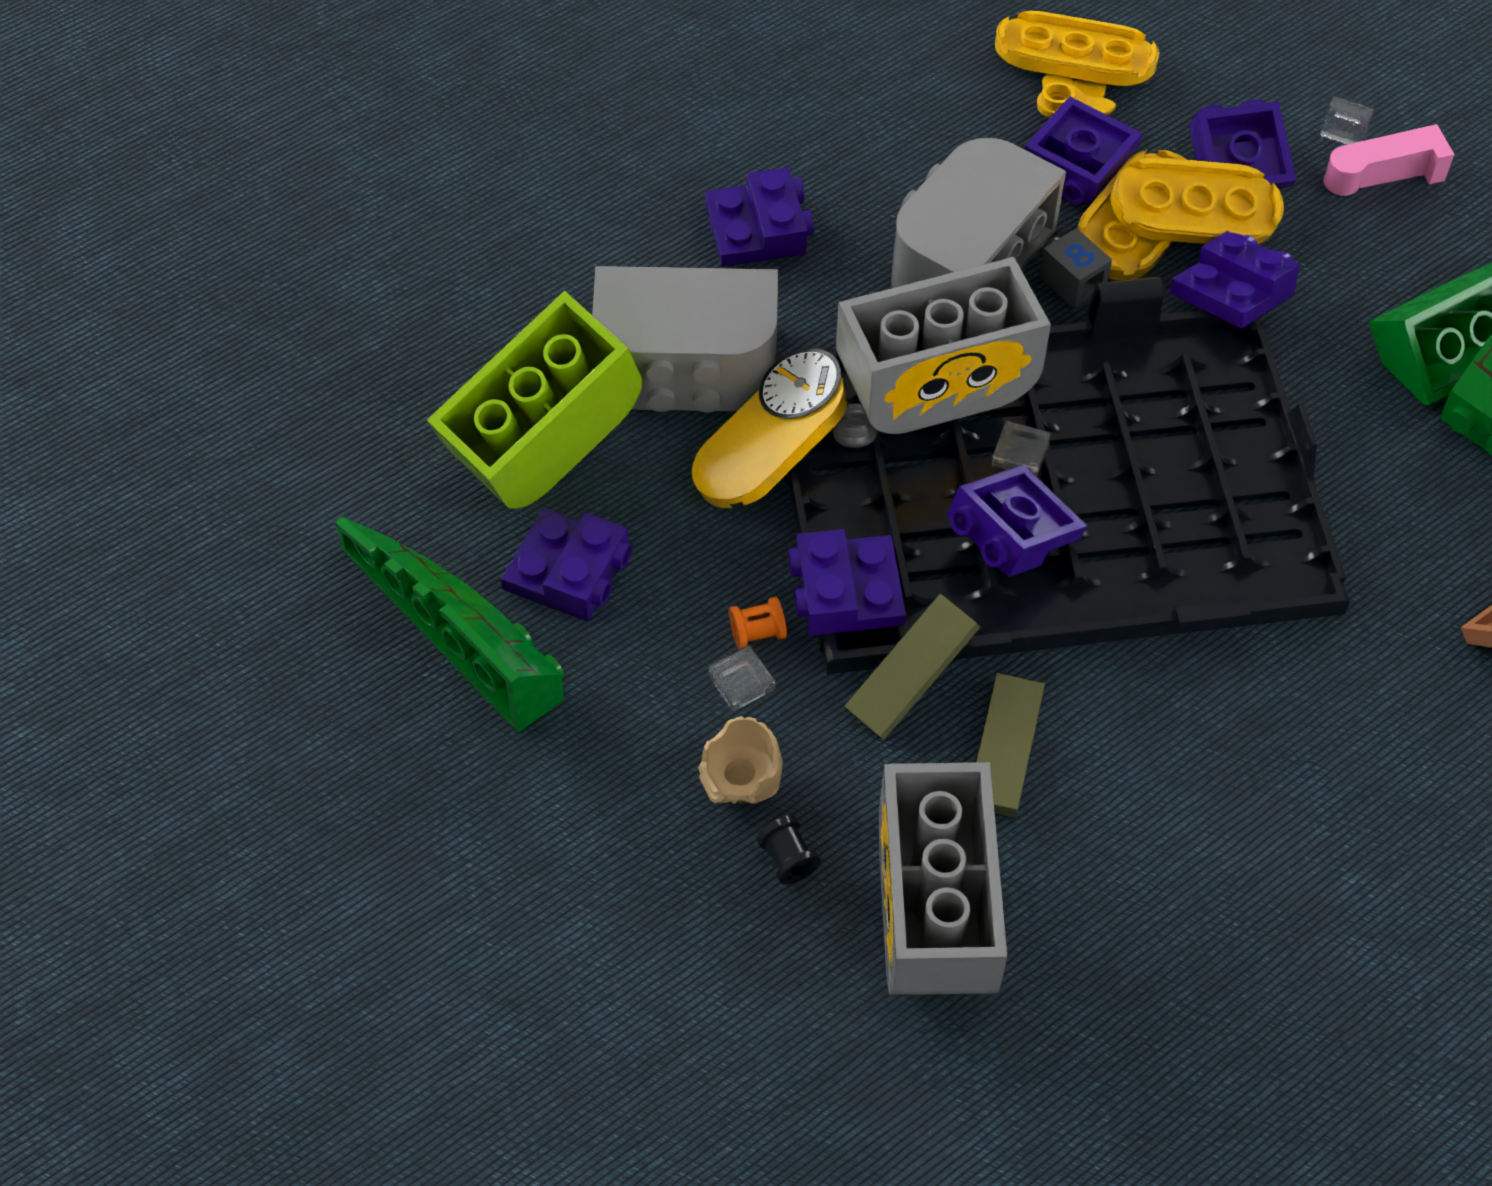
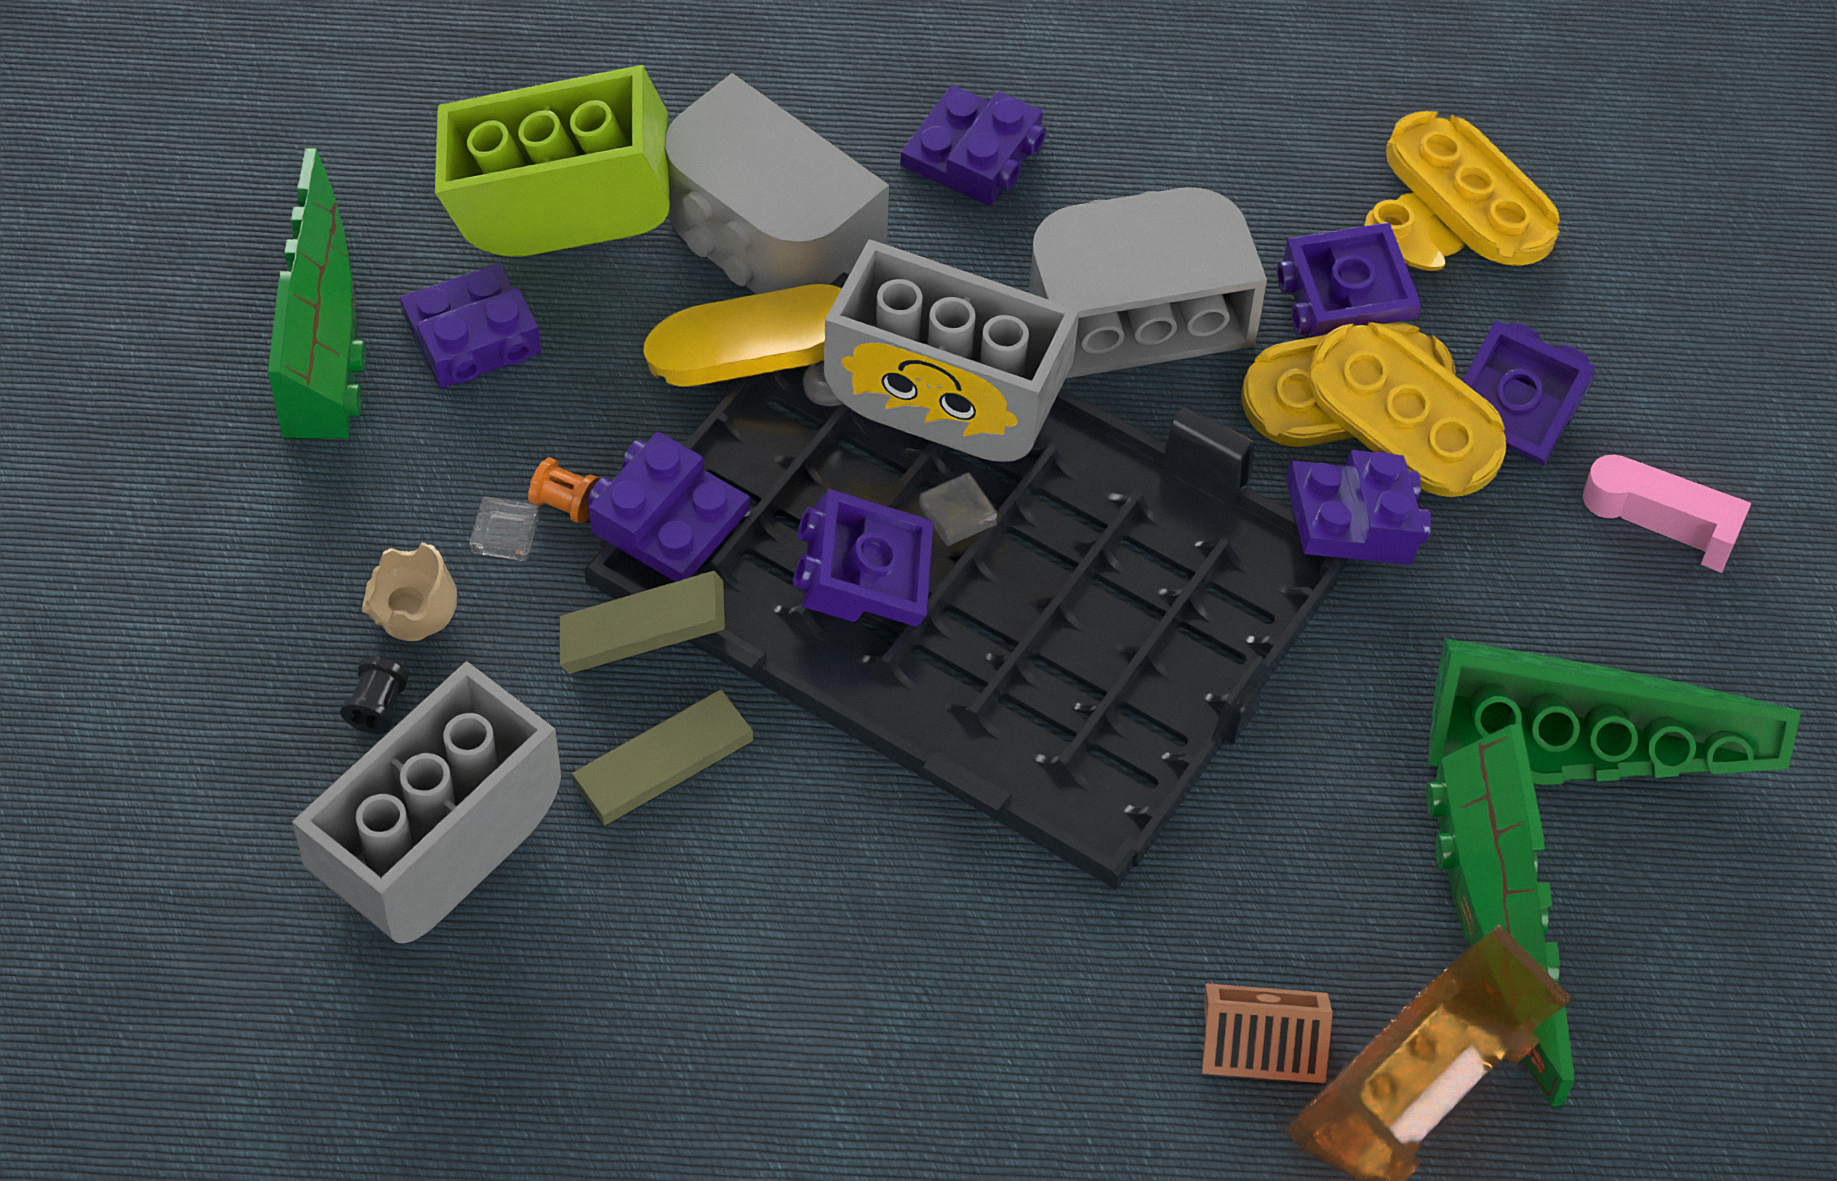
camera: 40 degrees right, 0 degrees up
(799, 383) = (804, 305): white sticker -> none
(1074, 267) = (1218, 383): dark grey brick -> none
(1346, 121) = (1667, 440): clear tile -> none

